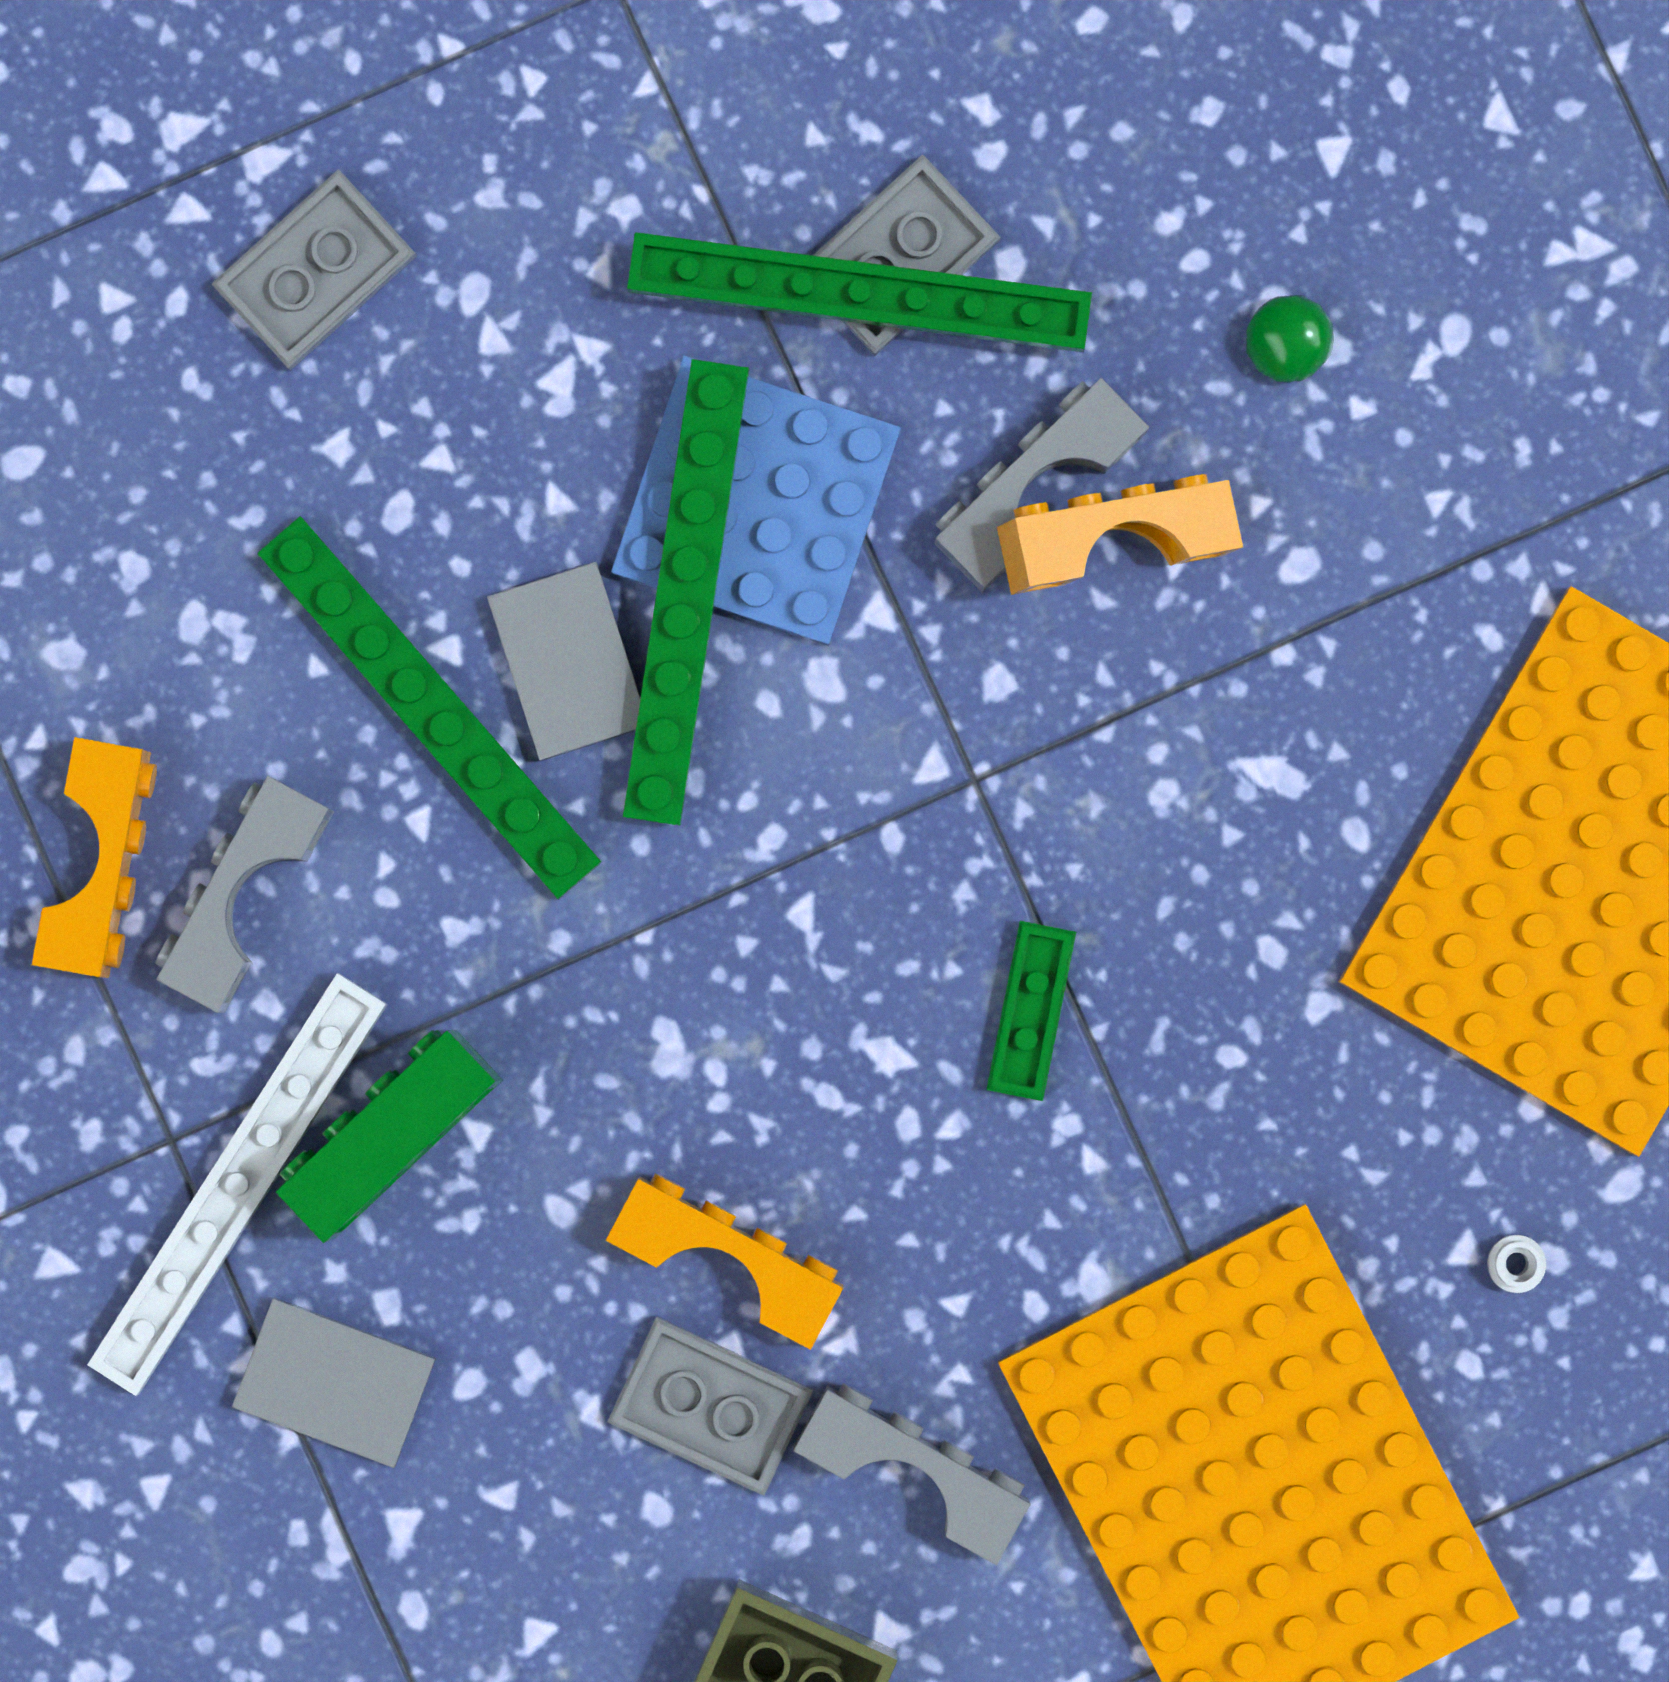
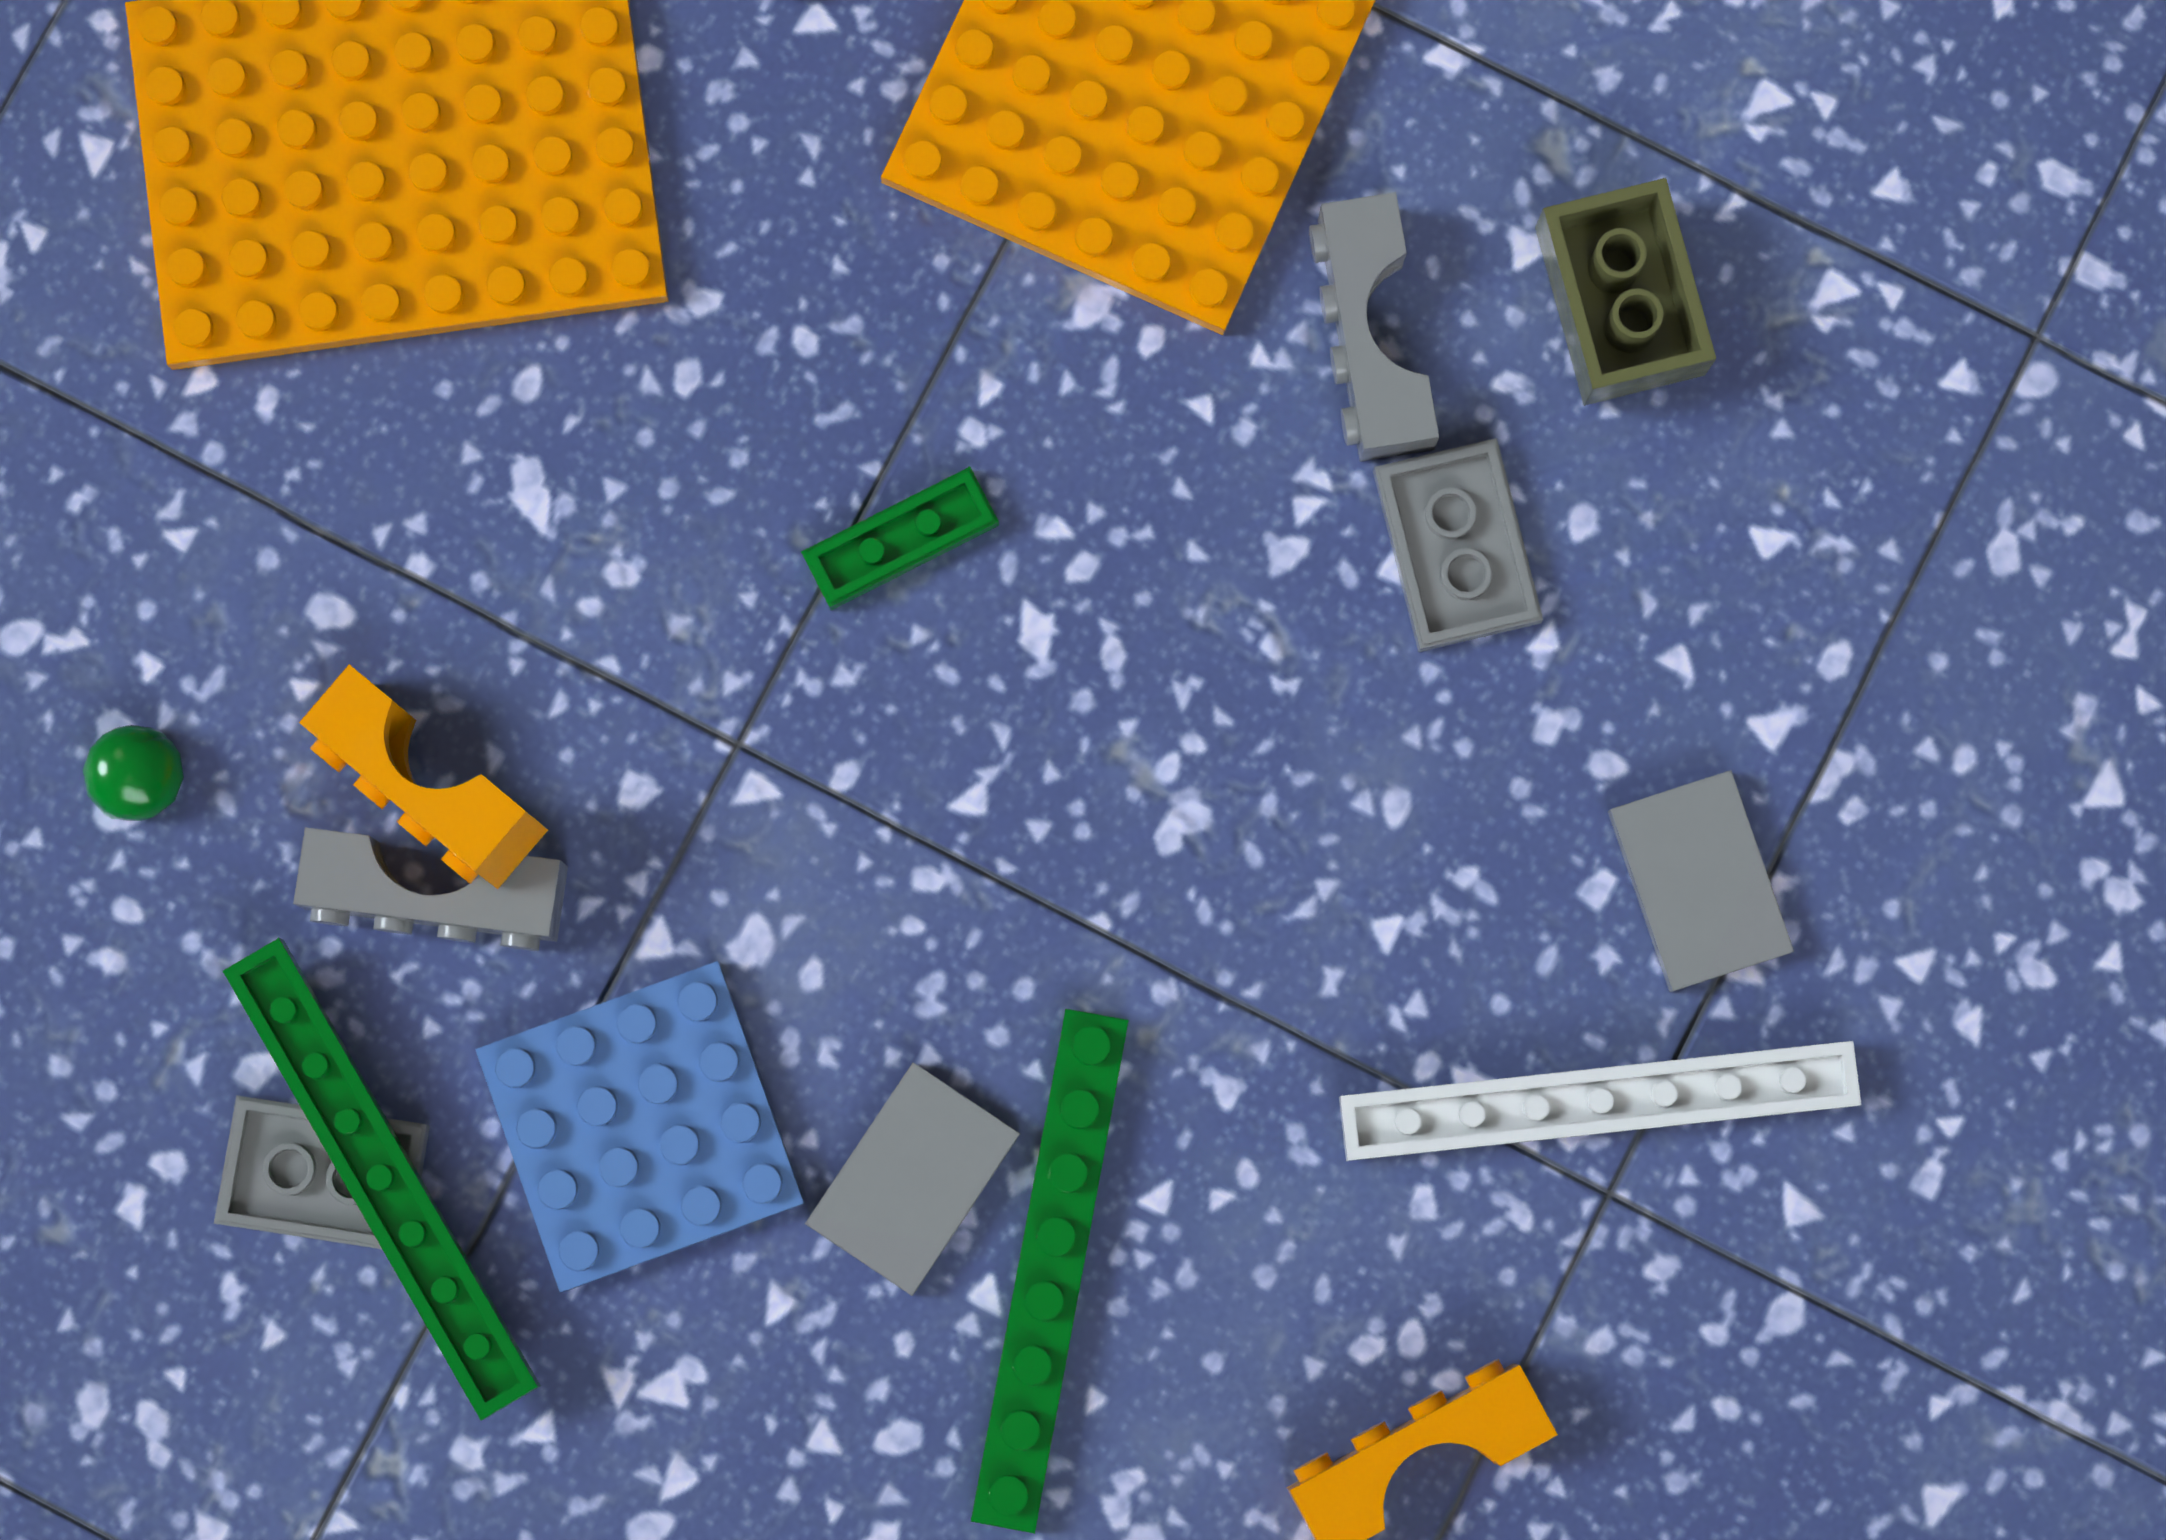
camera: 125 degrees left, 5 degrees down
(207, 957) = (1427, 1285): light grey arch -> none
(389, 1135) = (1451, 997): green brick -> none
(686, 592) = (767, 1120): green plate -> none
(792, 1293) = (1339, 706): light orange arch -> none

